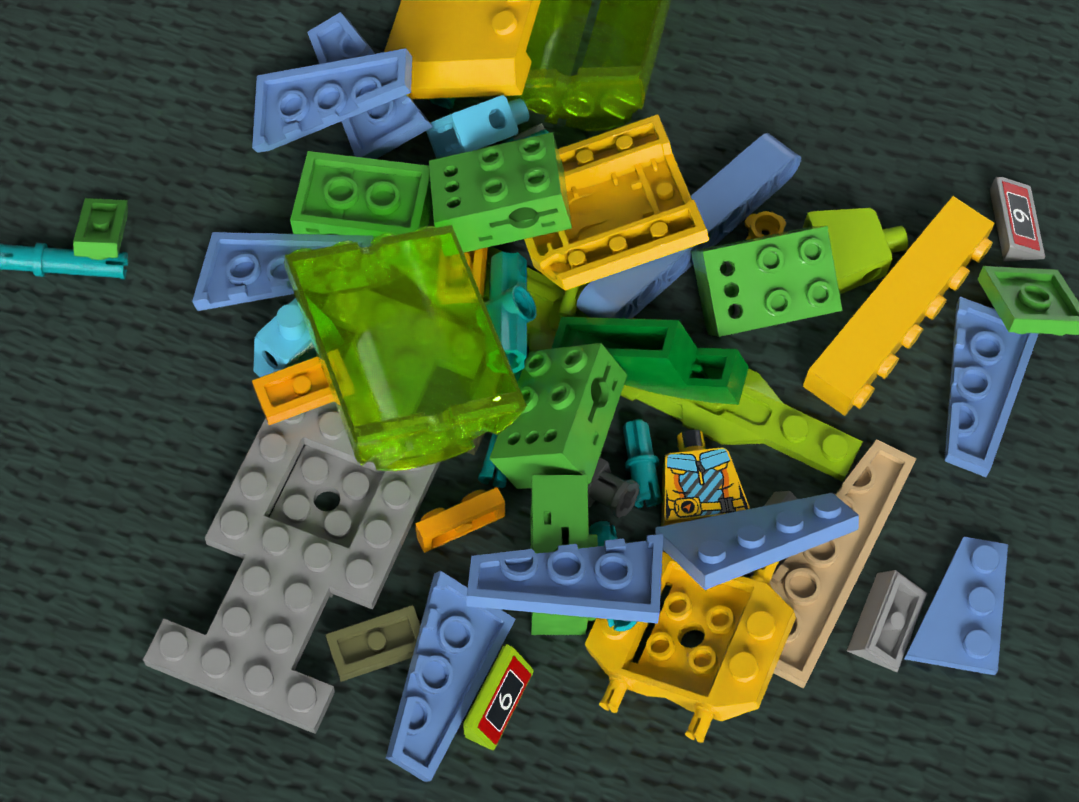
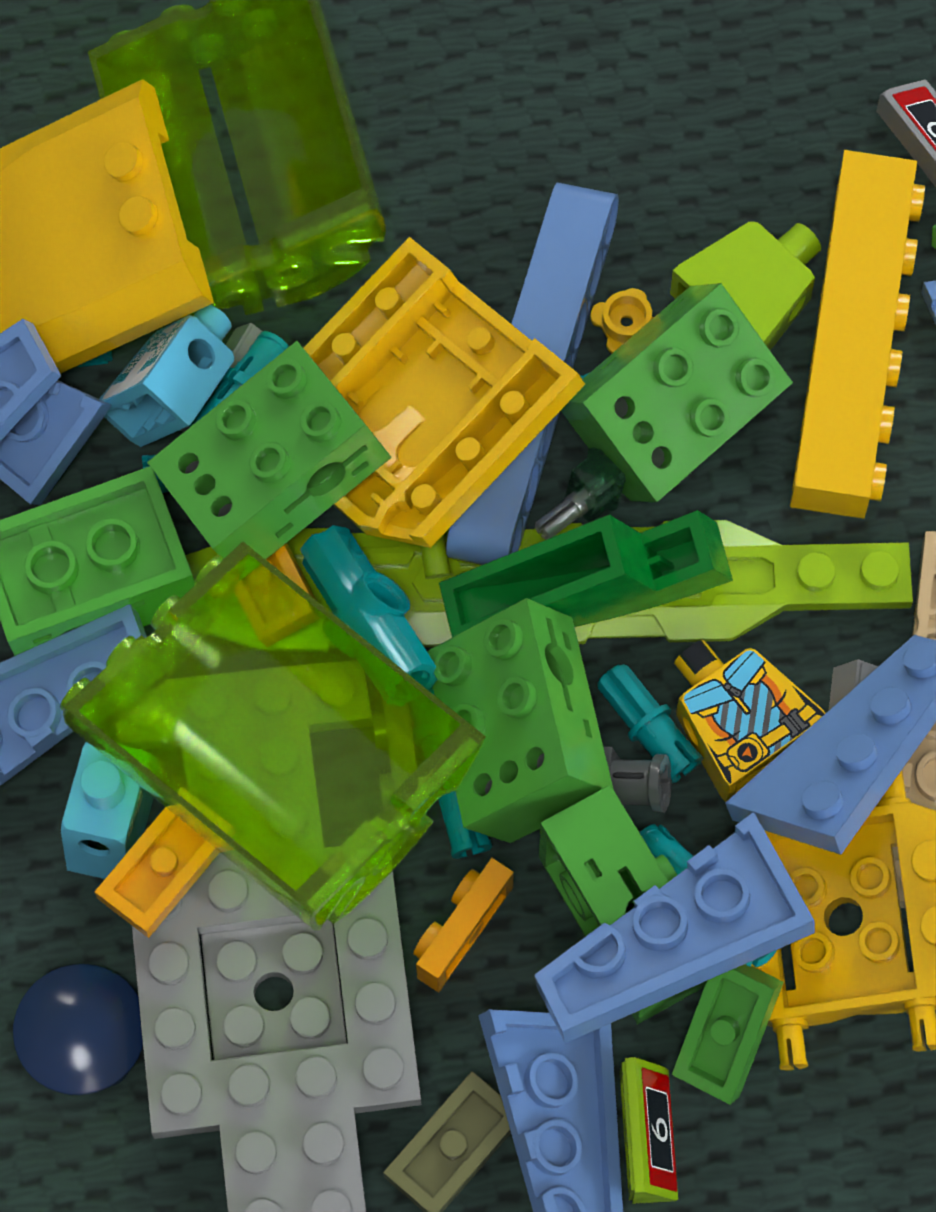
camera: 25 degrees left, 5 degrees up
(202, 461) = (78, 1029): none -> dark blue dish
(579, 662) = (727, 1031): none -> bright green plate
(689, 309) = (591, 491): none -> clear green piece

